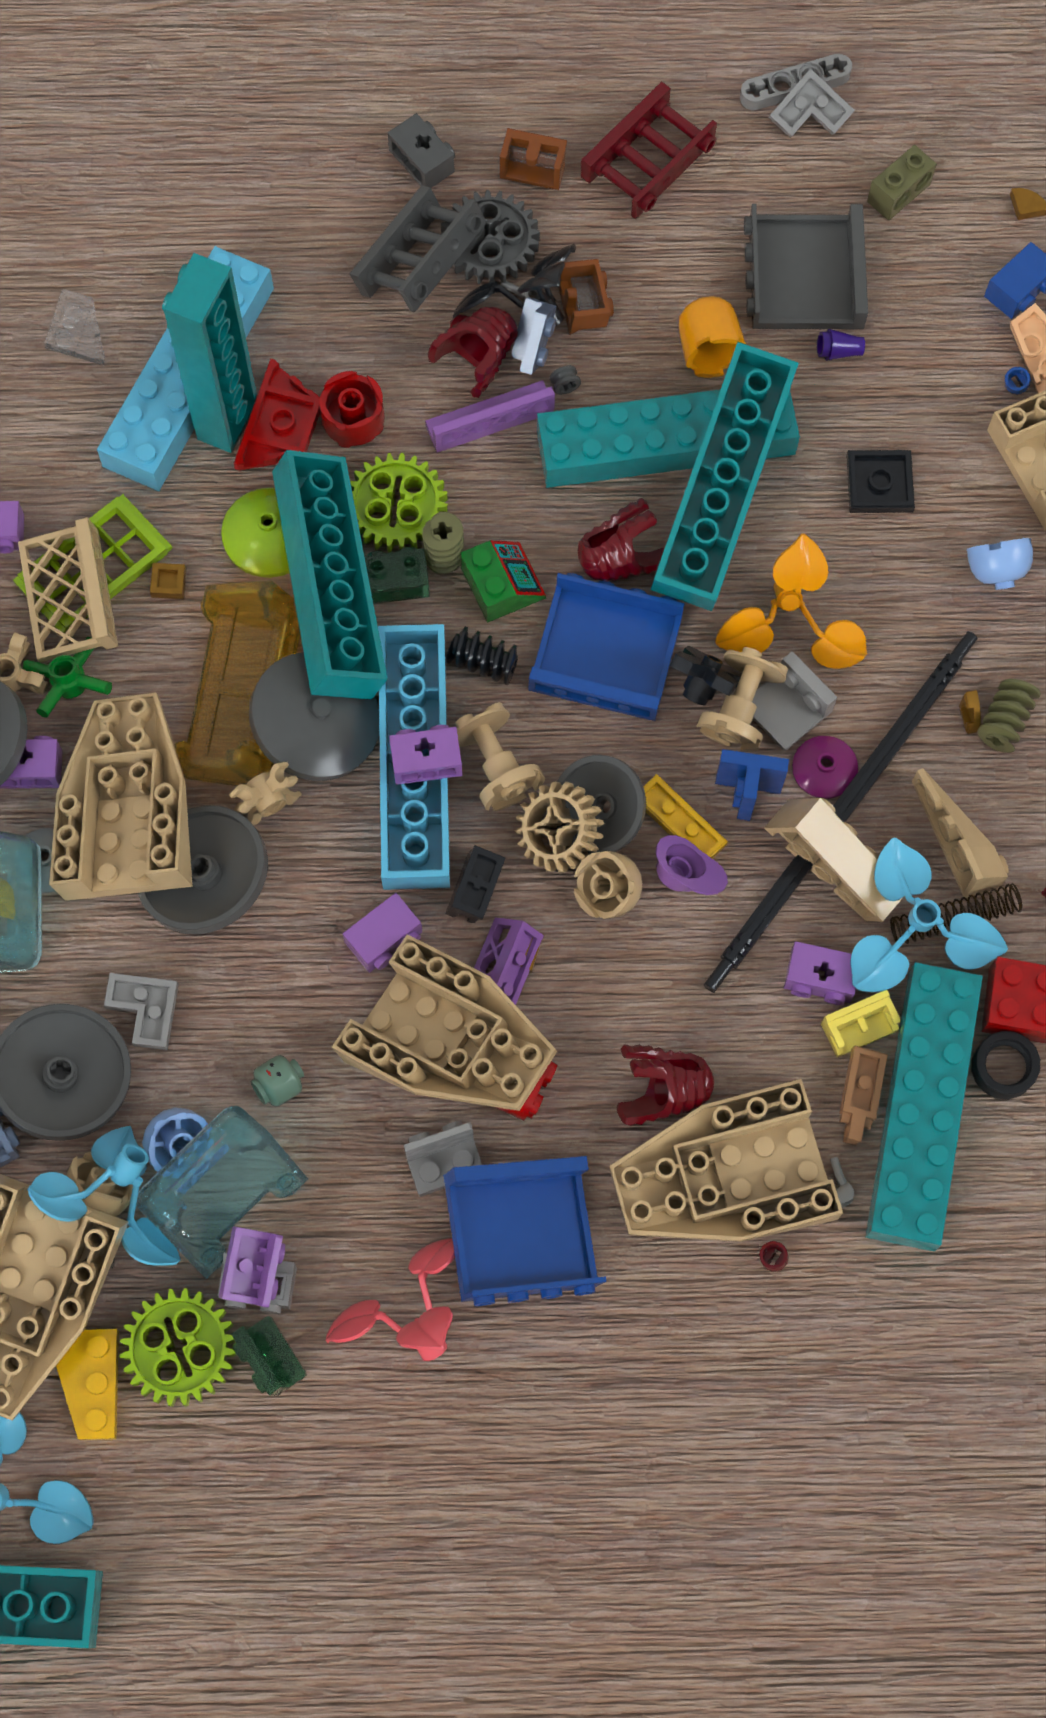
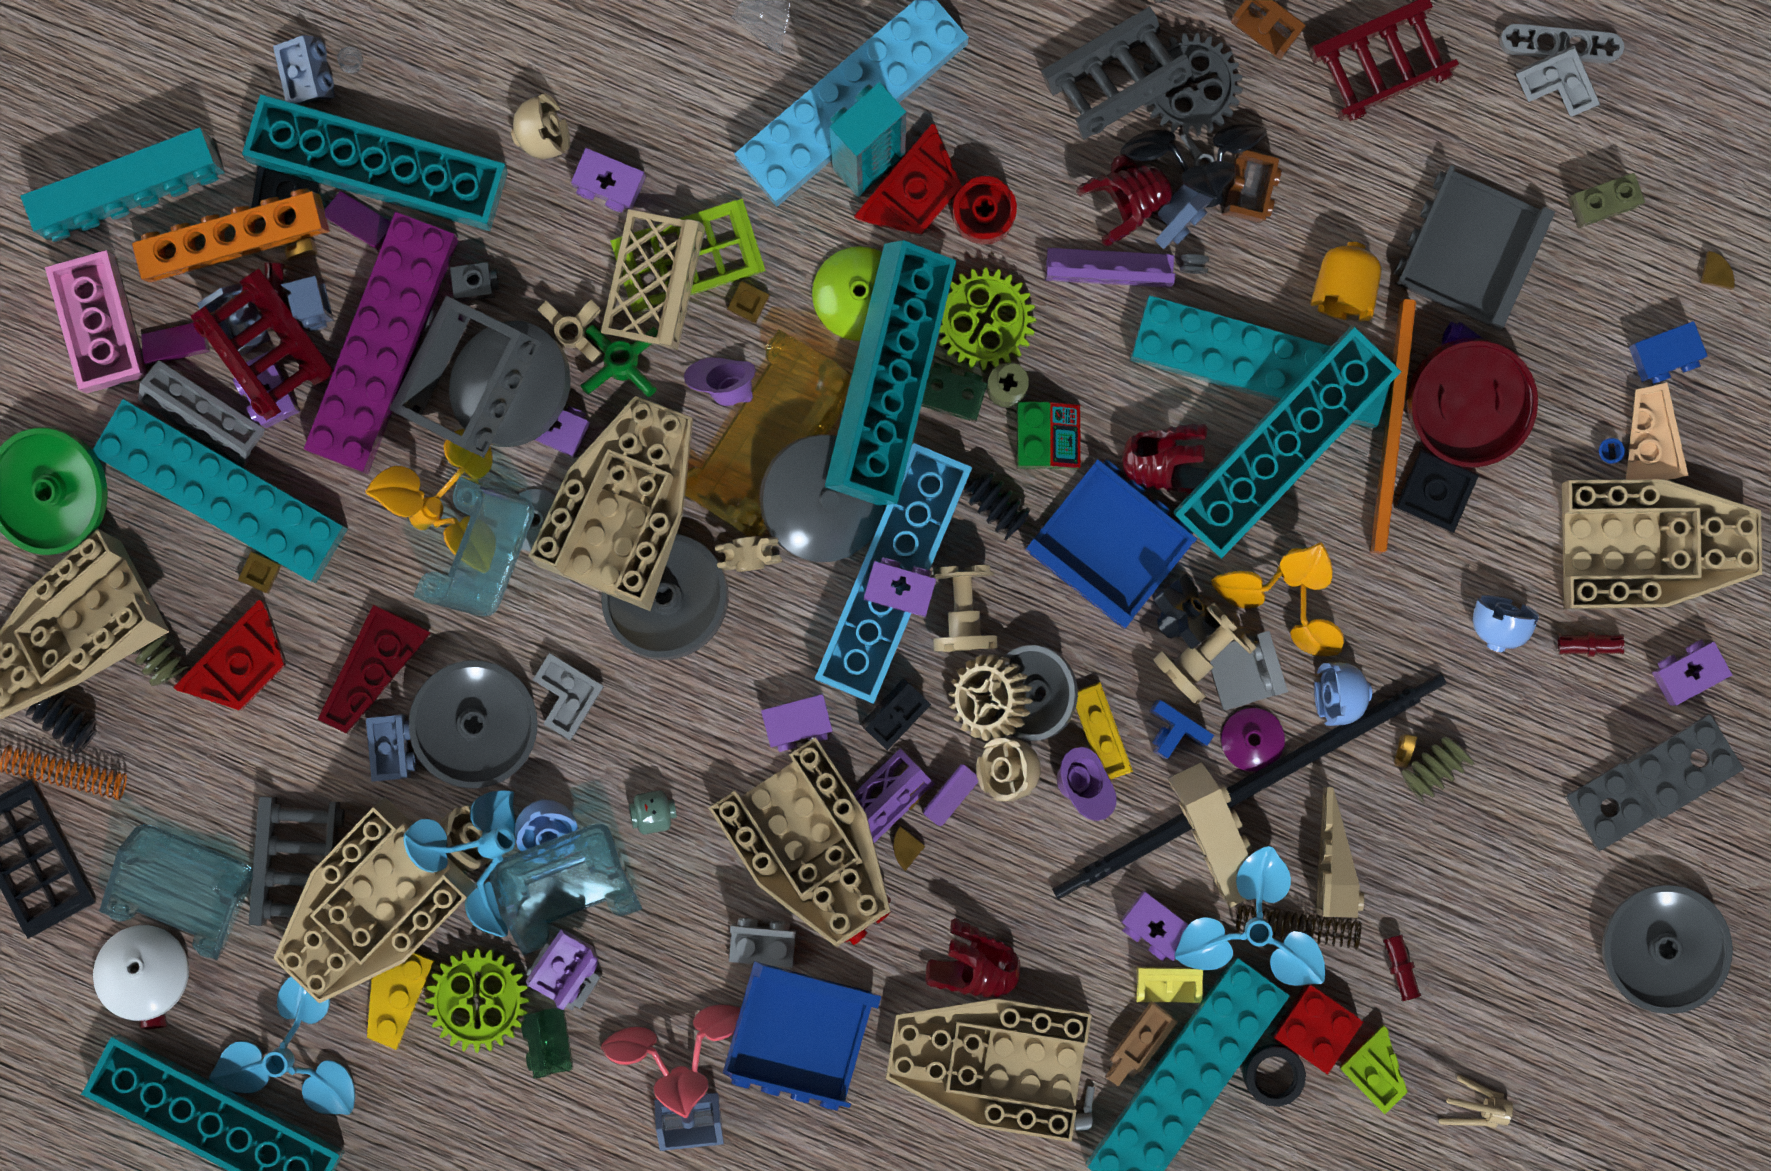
camera: 25 degrees right, 15 degrees up
(176, 655) = (723, 379): none -> medium lavender piece
(449, 1373) = (699, 1129): none -> sand blue window
(544, 1008) = (906, 848): none -> pearl gold tile
(564, 938) = (950, 795): none -> medium lavender slope
(768, 1252) = (996, 1141): dark red hinge -> none
(818, 453) = (1393, 427): none -> orange tile
(873, 387) = (1472, 402): none -> dark red piece
(886, 684) = (1341, 693): none -> light blue cylinder

